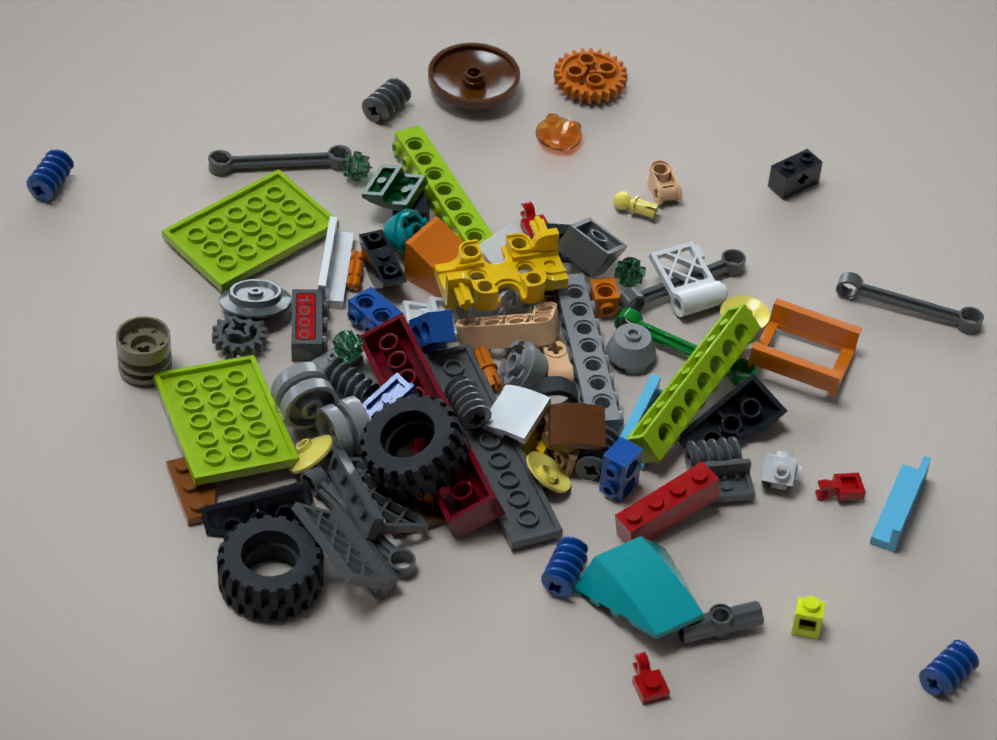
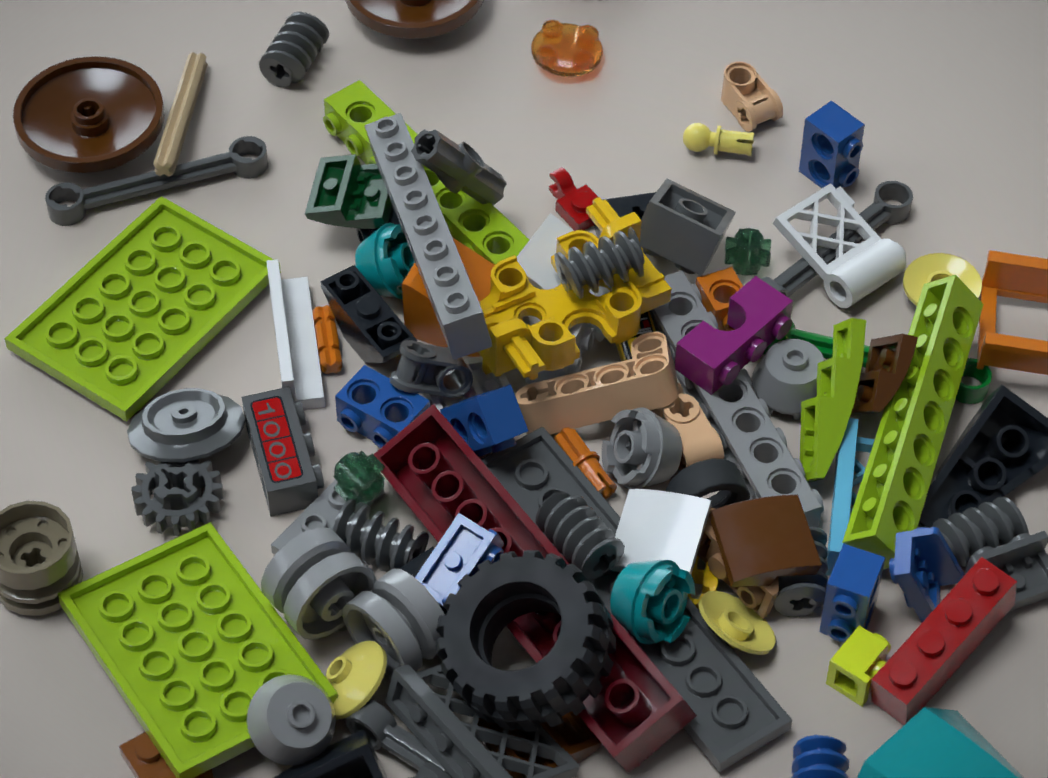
camera: 10 degrees left, 5 degrees up
(248, 113) = (88, 114): none -> reddish brown dish
(267, 463) = (291, 719): none -> light grey cone
(304, 124) = (180, 114): none -> tan axle
(362, 163) = (269, 168): clear green gear -> none
(405, 295) = (425, 370): none -> dark grey piece
(427, 217) = (428, 238): none -> light grey brick
(459, 183) = (458, 167): none -> dark grey piece
(498, 445) = (652, 600): none -> teal cone
(527, 253) = (600, 262): none -> dark grey piece
(608, 506) = (857, 663): none -> neon yellow brick
(616, 308) = (716, 356): none -> magenta arch
(643, 367) = (827, 414): none -> lime slope
(667, 460) = (922, 566): none -> blue bracket
(678, 357) = (884, 372): none -> reddish brown slope
(702, 220) = (831, 146): none -> blue brick
(795, 174) = (935, 42): black brick -> none

